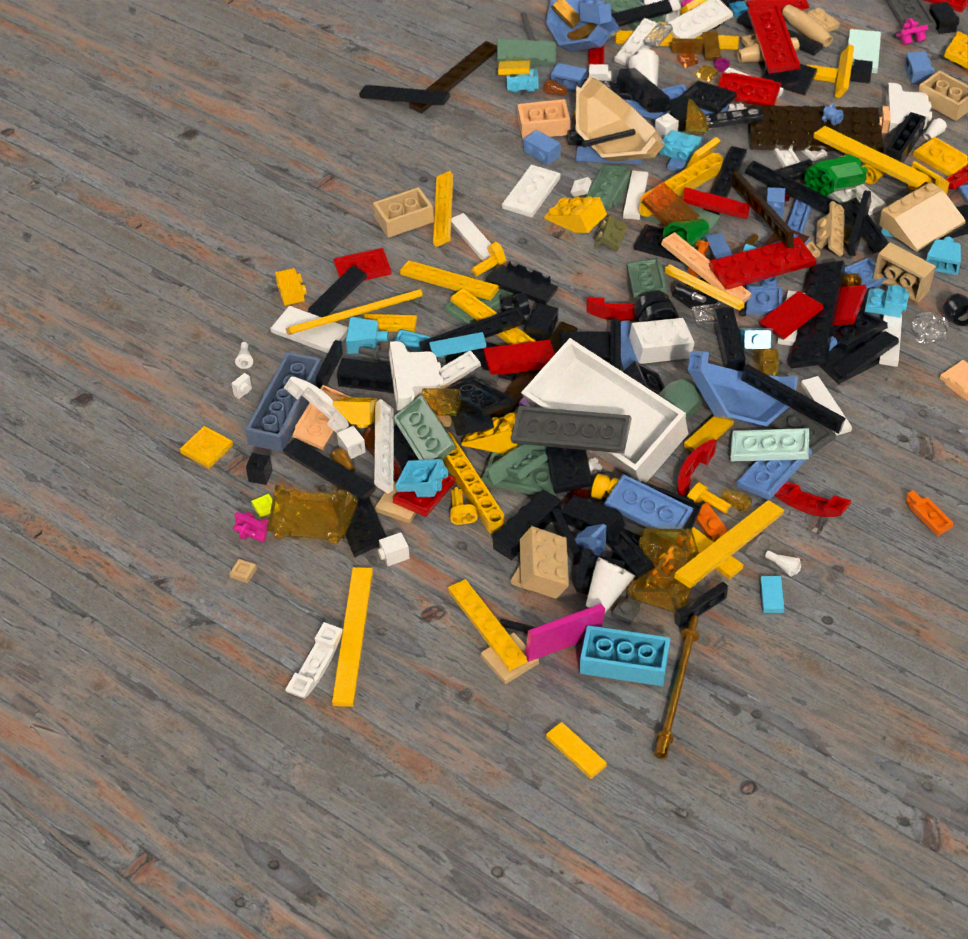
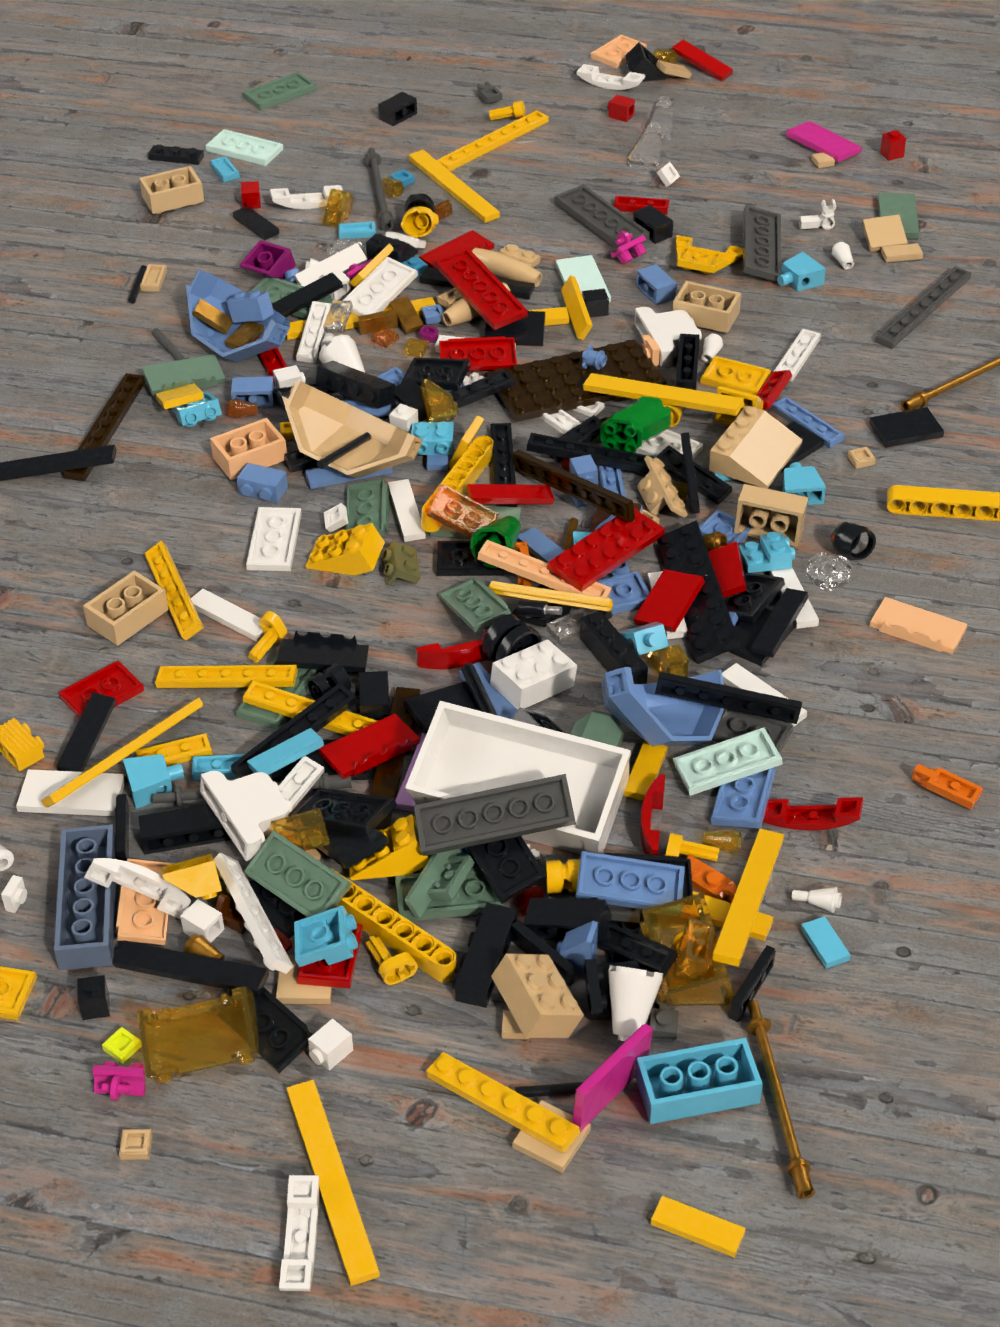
camera: 25 degrees left, 5 degrees down
(731, 49) = (432, 314): none -> medium blue plate

